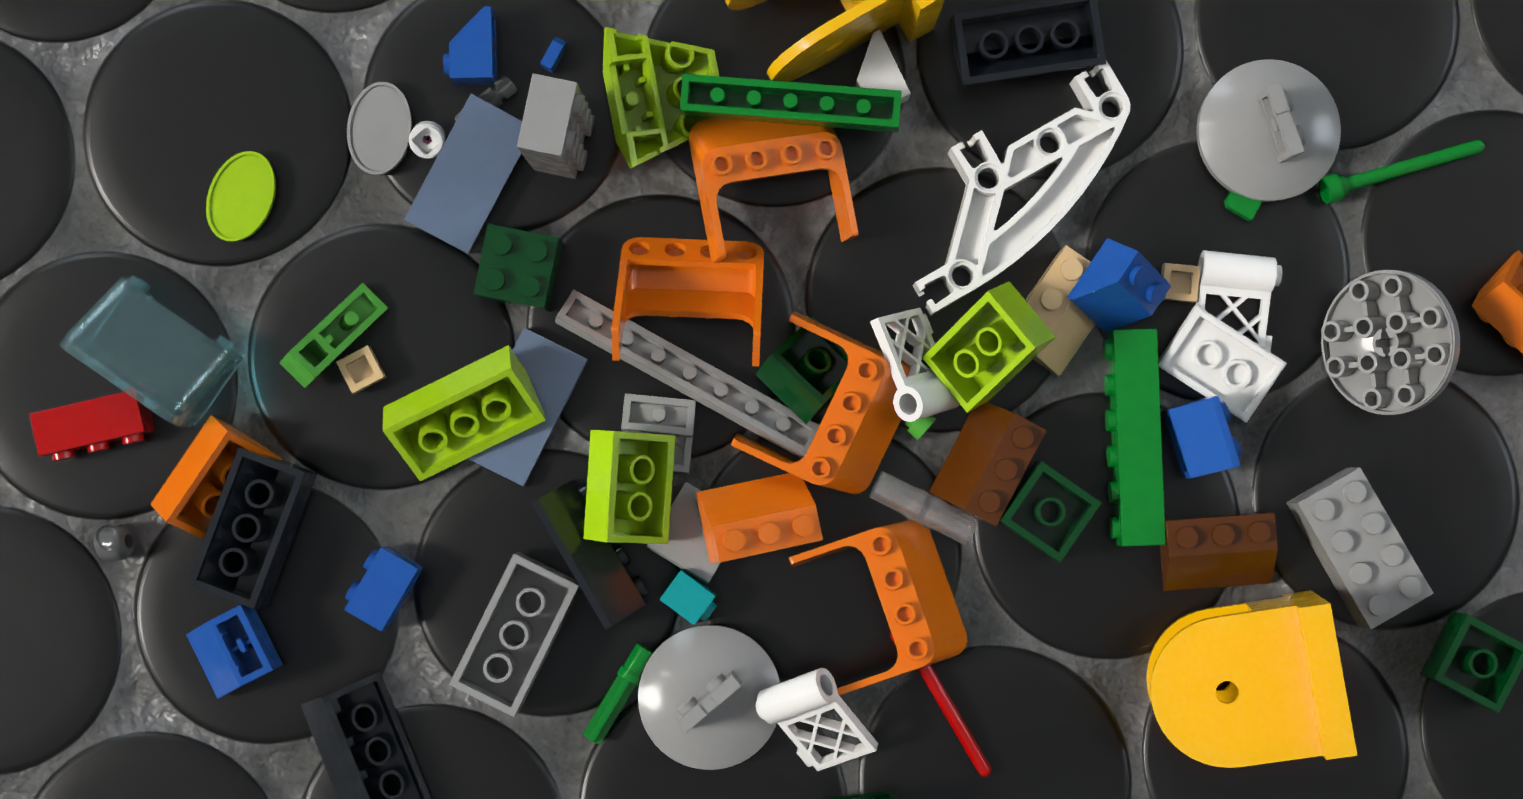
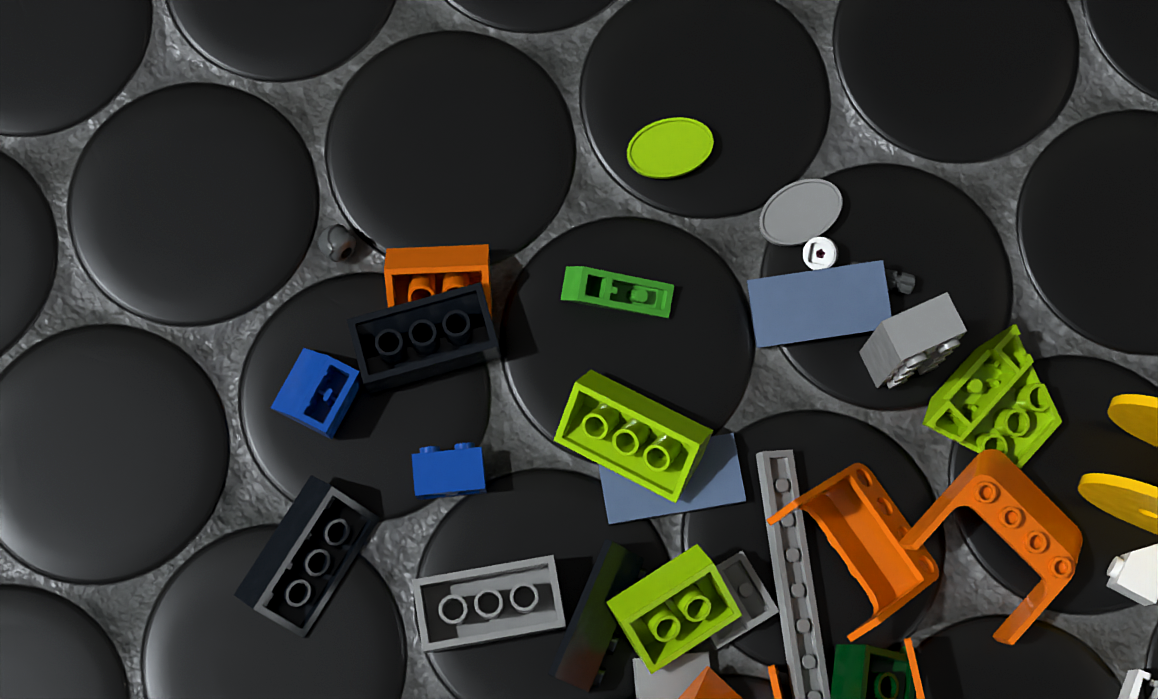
camera: 55 degrees right, 10 degrees down
(90, 425) = (416, 163): red brick -> none
(152, 353) = (505, 169): clear light blue windscreen -> none
(361, 369) = (606, 332): tan plate -> none
(474, 51) = (914, 239): blue slope -> none
(518, 267) = (777, 394): dark green brick -> none
(554, 54) = (964, 300): blue piece -> none
(790, 103) = (1075, 514): green brick -> none

